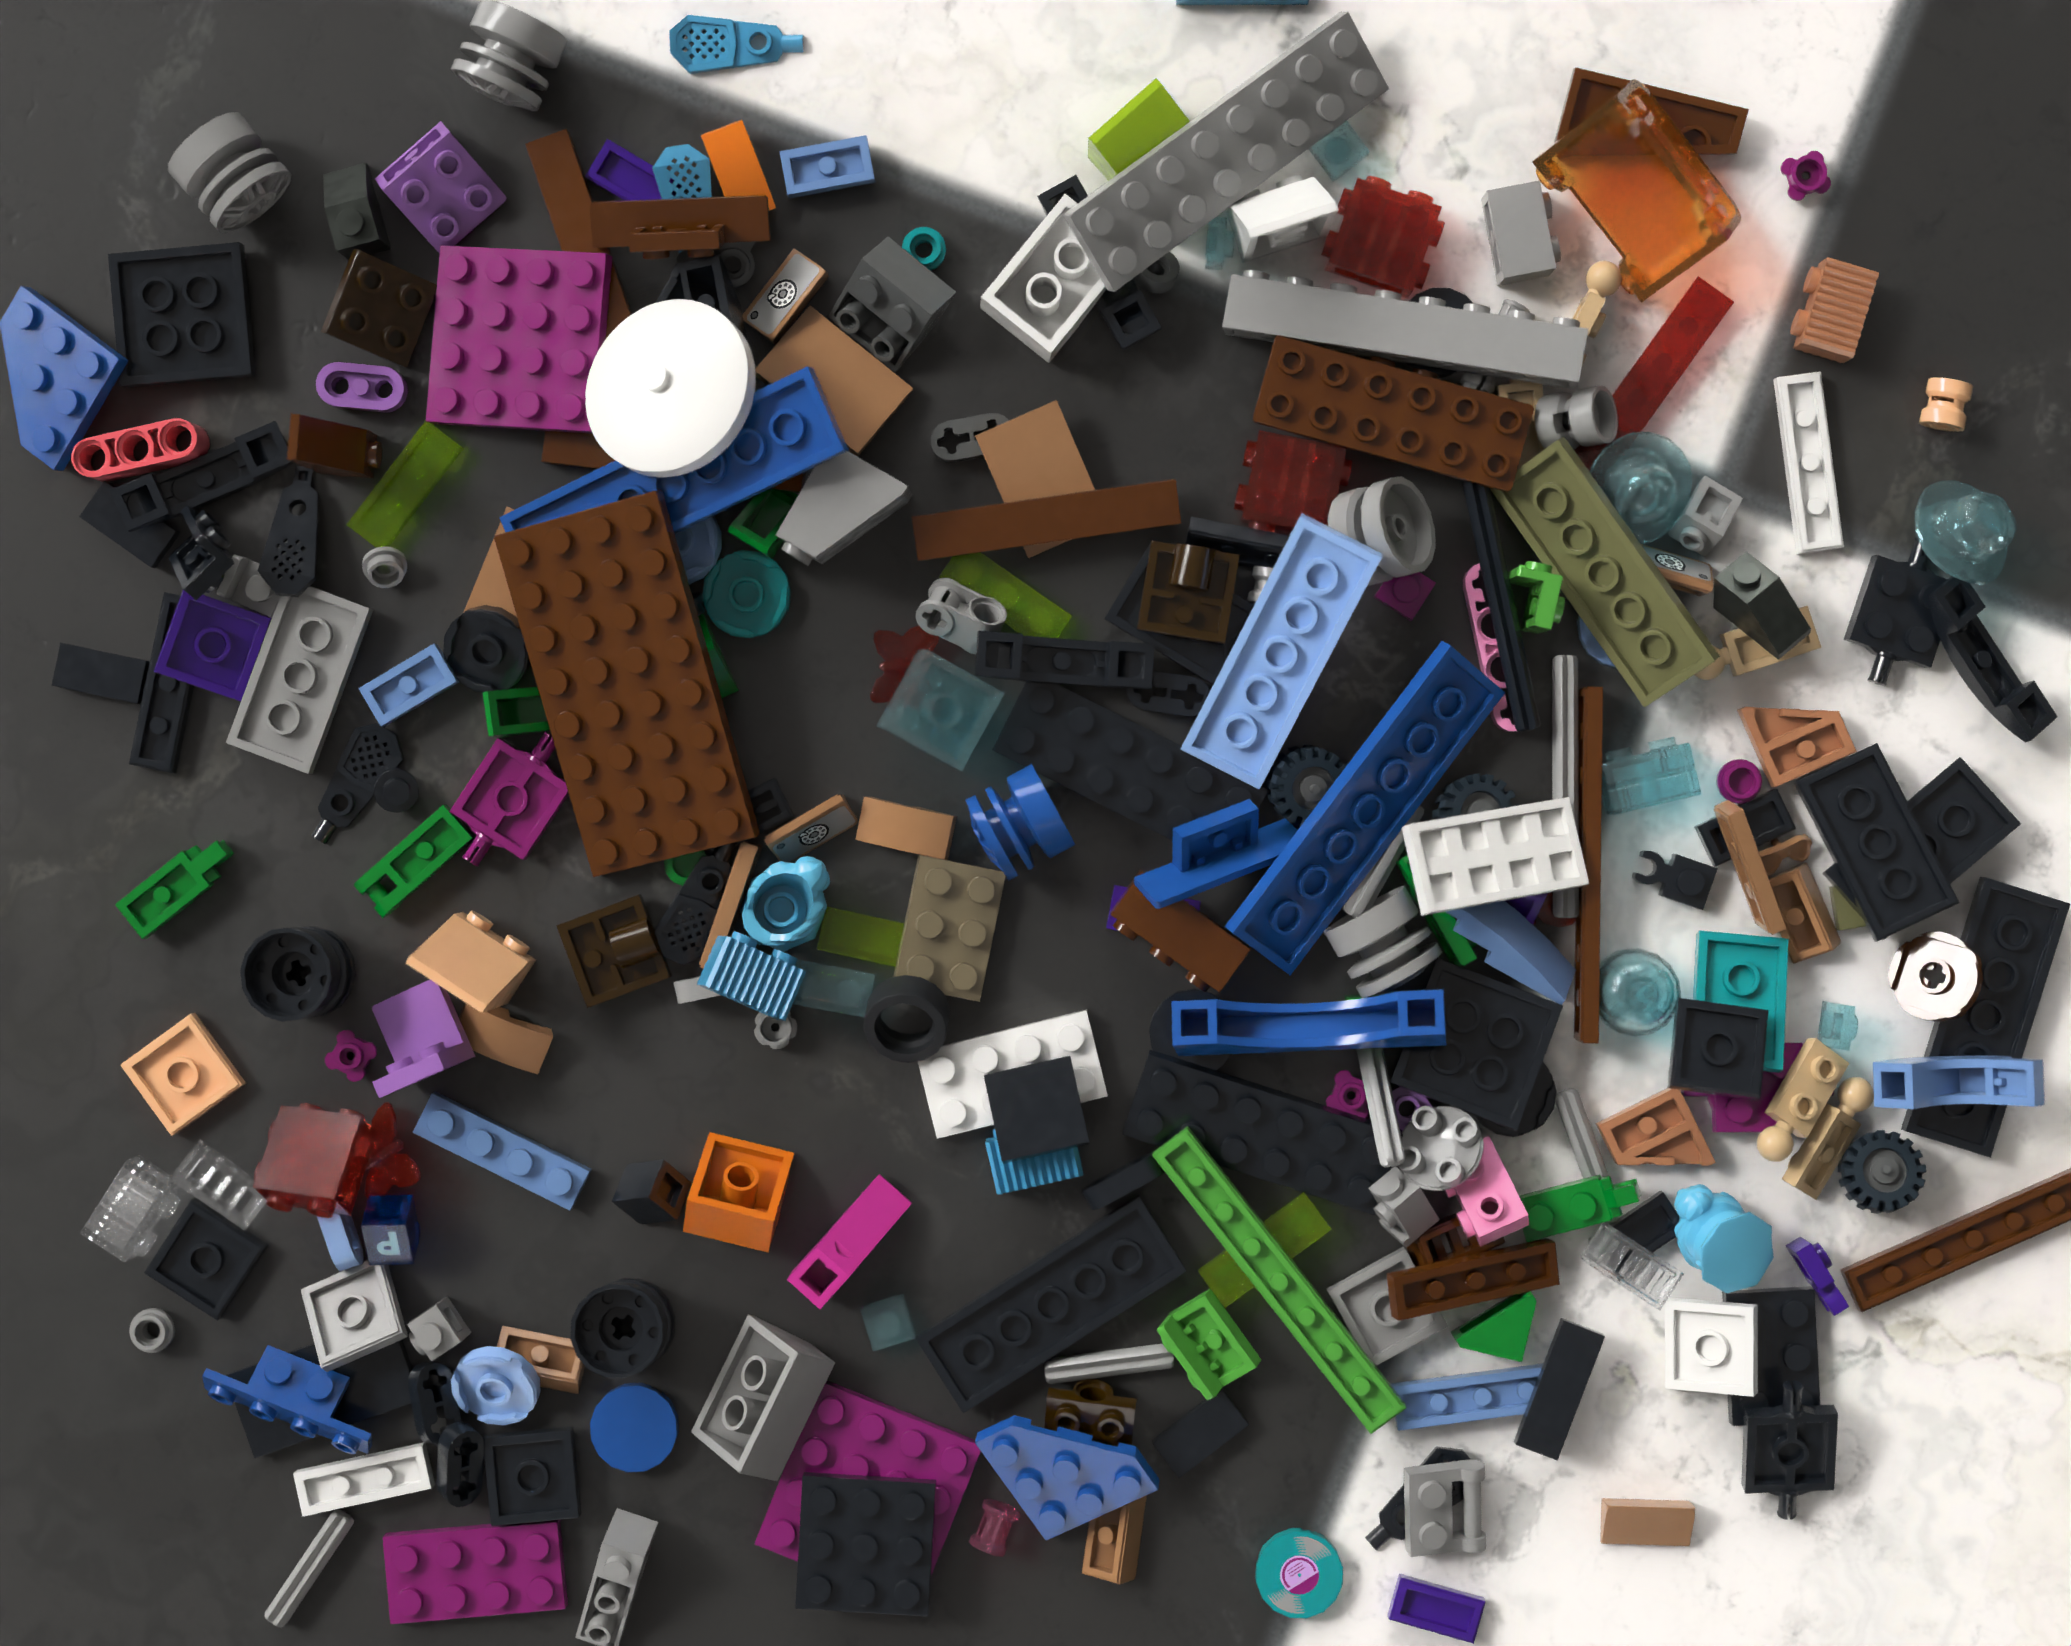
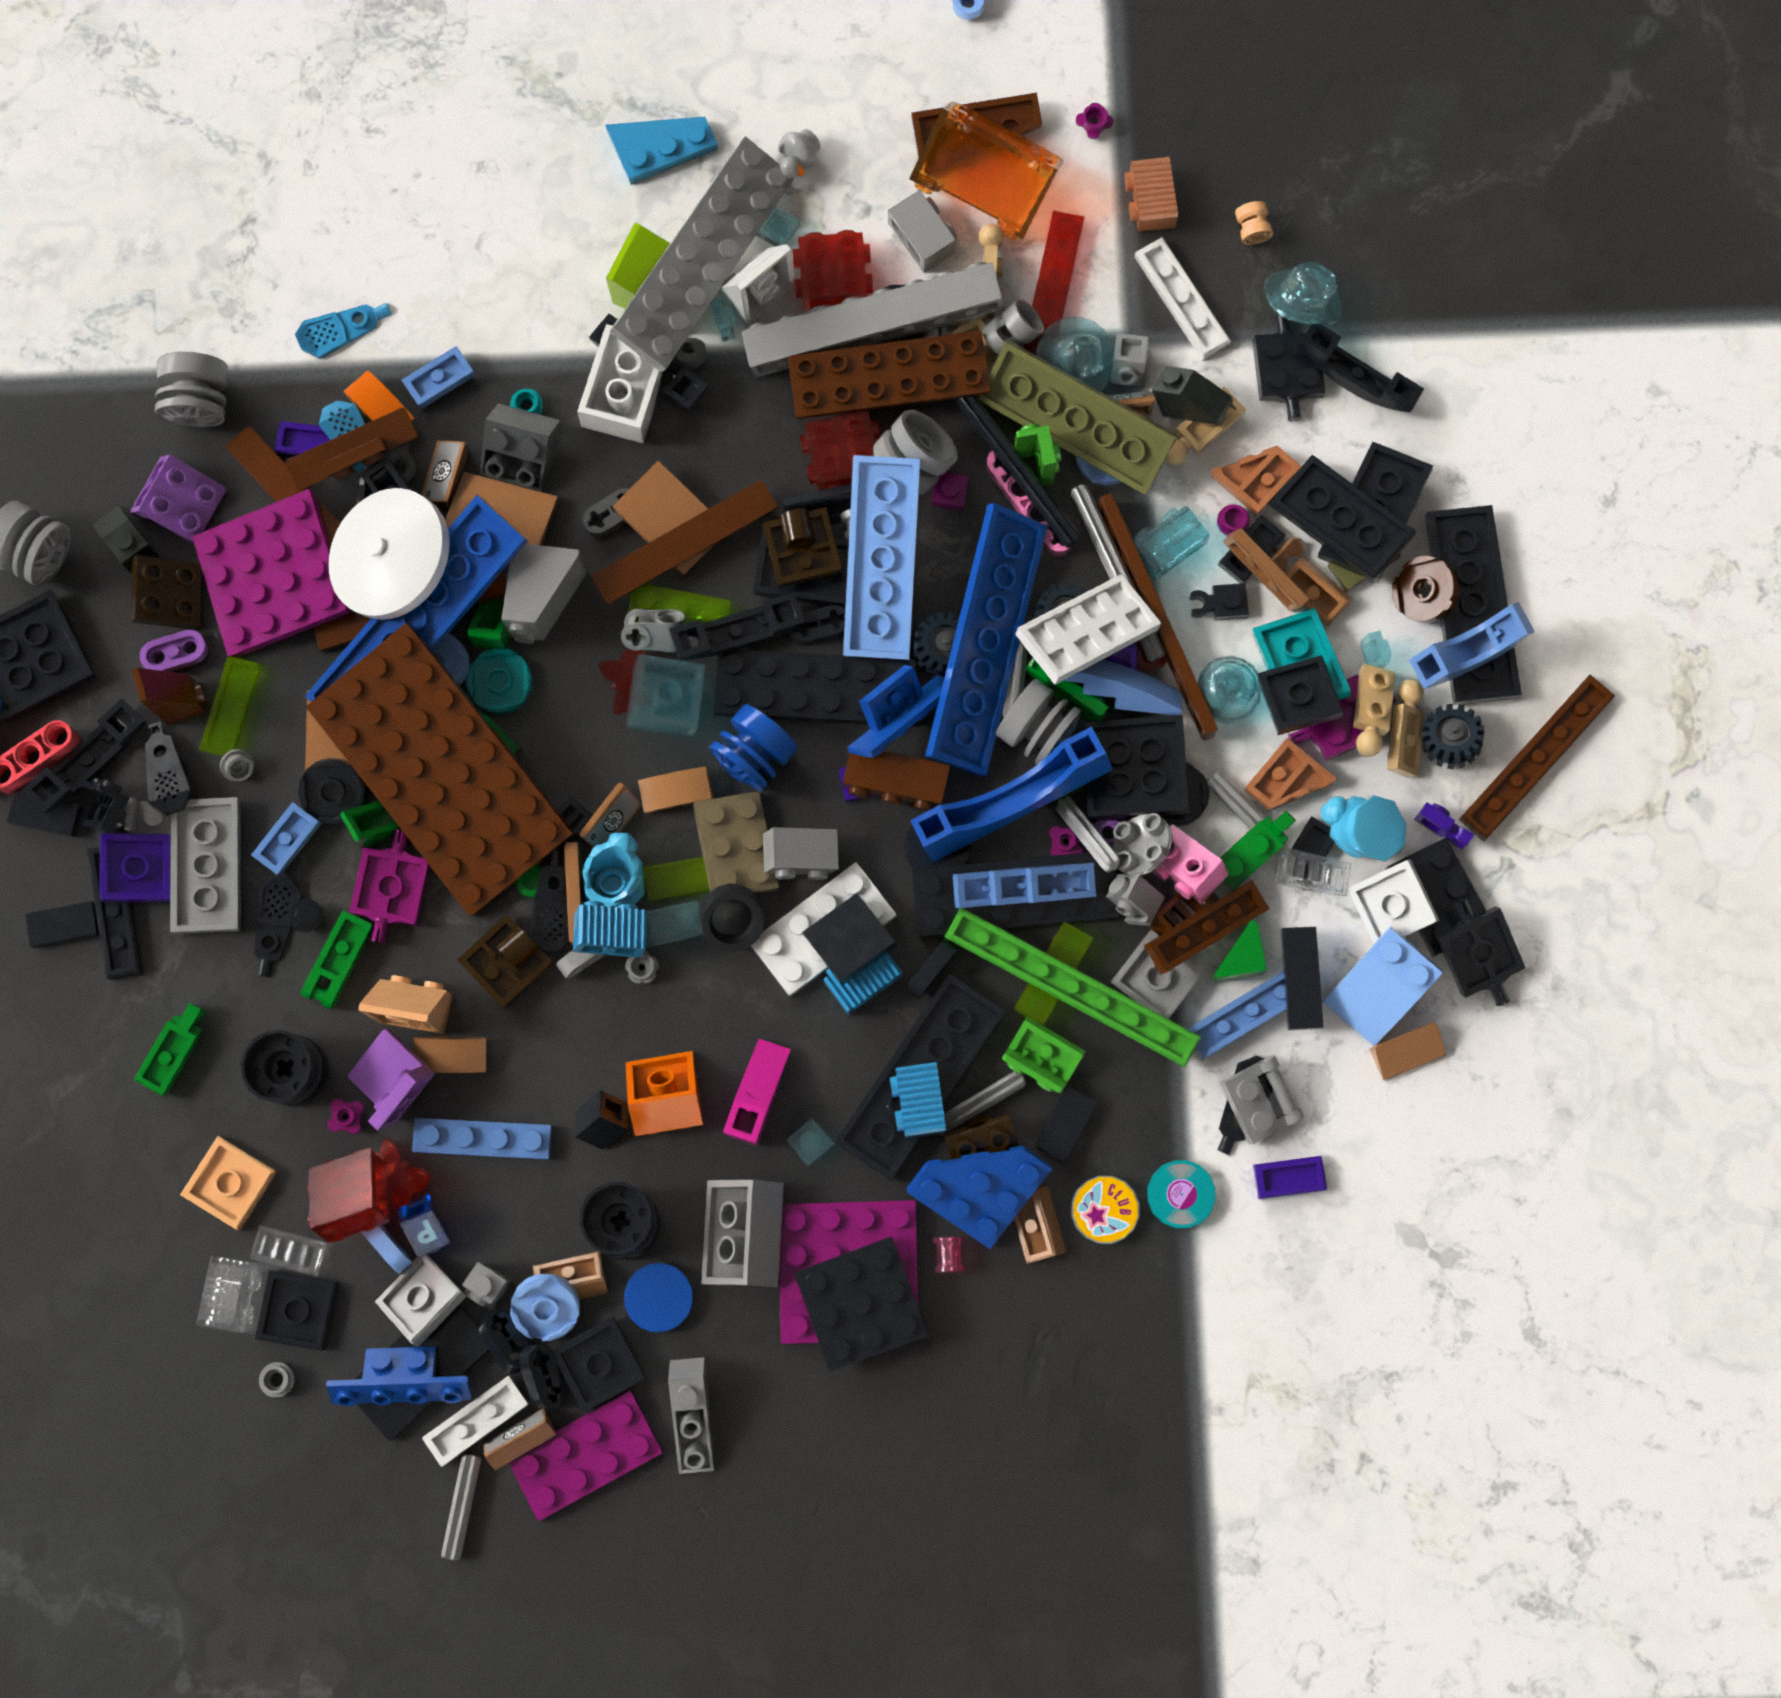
camera: 25 degrees left, 10 degrees down
(404, 1521) = (518, 1439): none -> medium nougat slope
(1023, 974) = (800, 852): none -> light grey brick
(1037, 1339) = (919, 1100): none -> dark azure brick
(1201, 1552) = (1105, 1209): none -> tile
(1276, 1136) = (1024, 885): none -> medium blue slope
(1410, 58) = (799, 152): none -> light grey animal
(1655, 1439) = (1383, 985): none -> light blue slope

